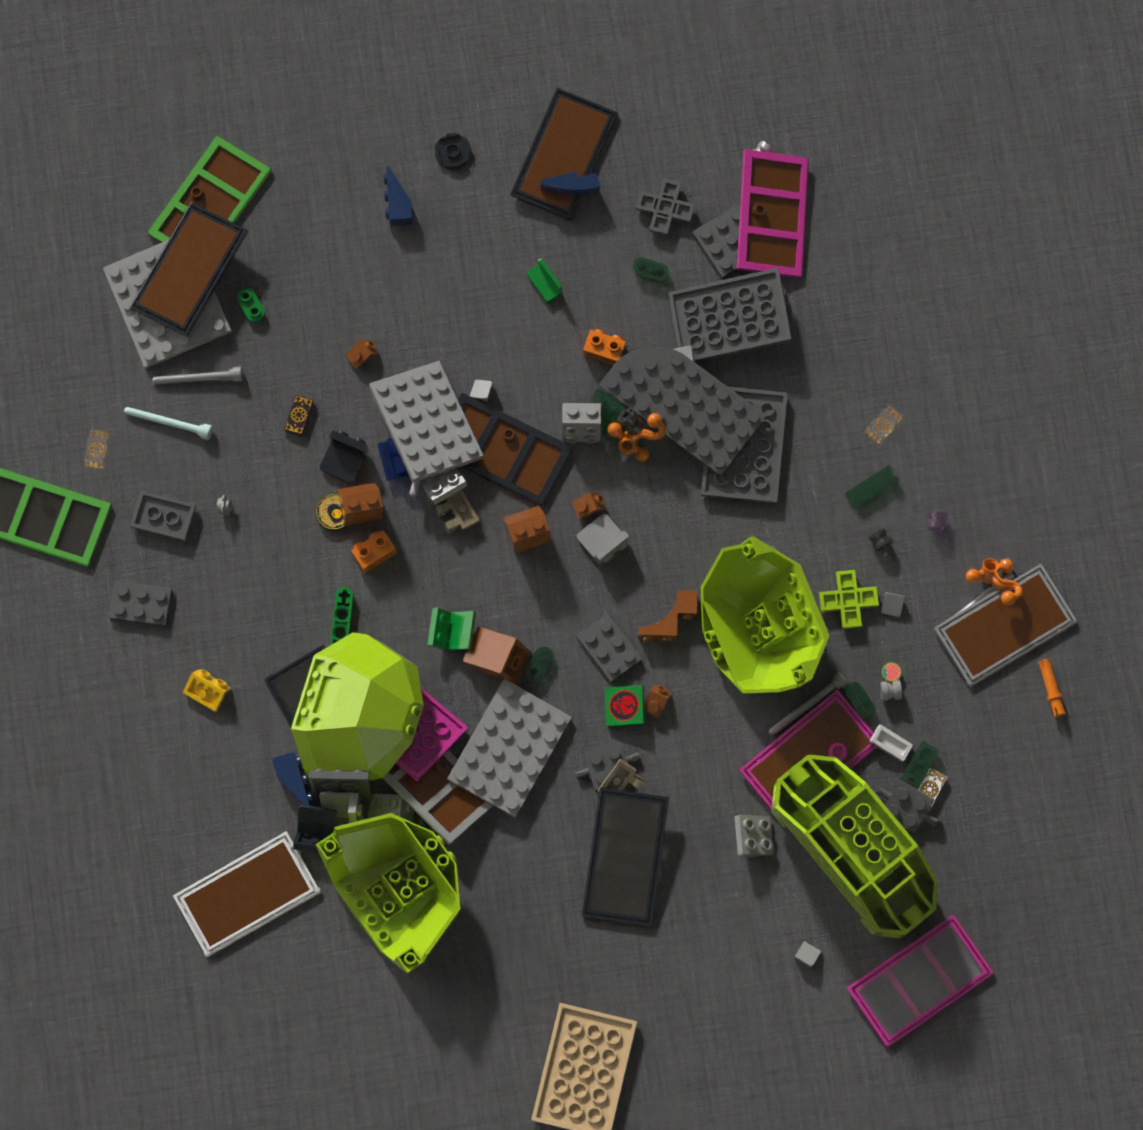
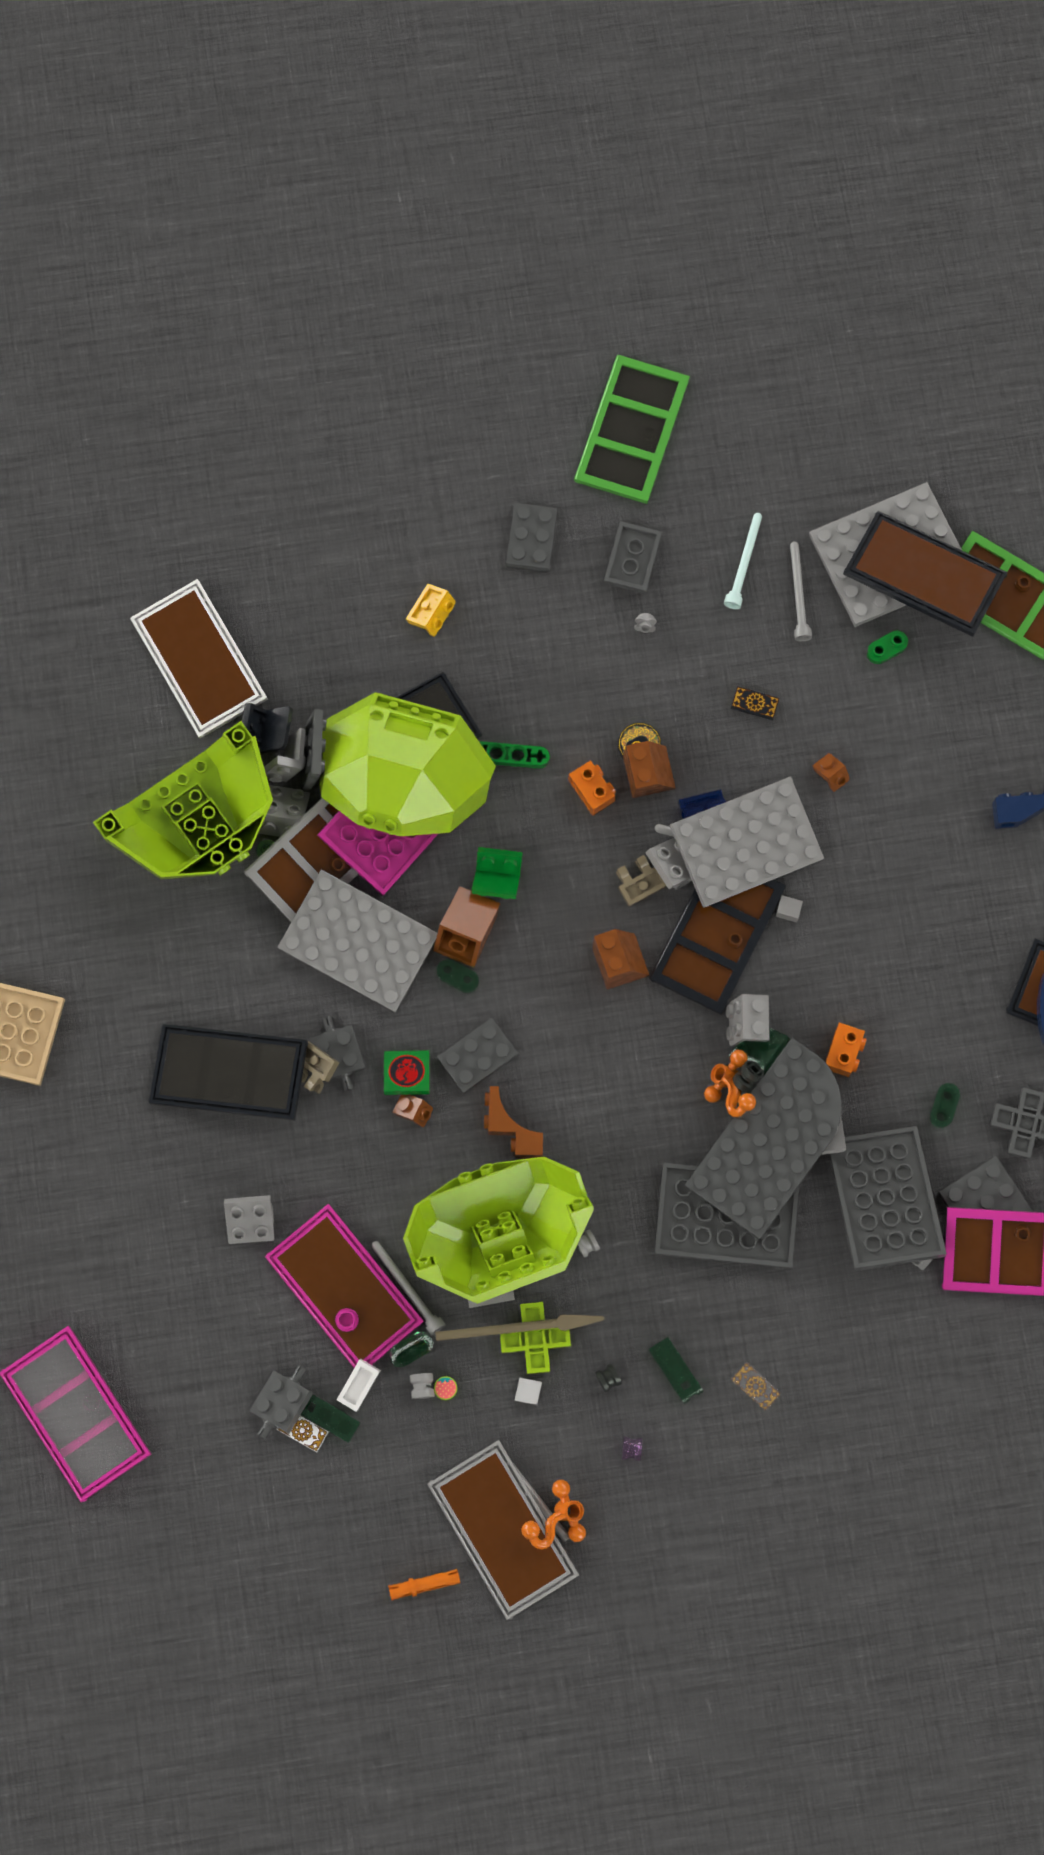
camera: 85 degrees right, 0 degrees up
(96, 448) = (712, 484): clear tile -> none
(289, 774) = (330, 699): dark blue slope -> none
(344, 456) = (704, 753): black bracket -> none
(545, 281) = (925, 980): green panel -> none
(588, 505) = (650, 1032): dark orange bracket -> none
(603, 539) = (608, 1048): light grey bracket -> none
(807, 954) = (110, 1281): light grey slope -> none
(836, 575) = (563, 1322): none -> dark tan piece
(886, 893) = (279, 1292): lime piece -> none

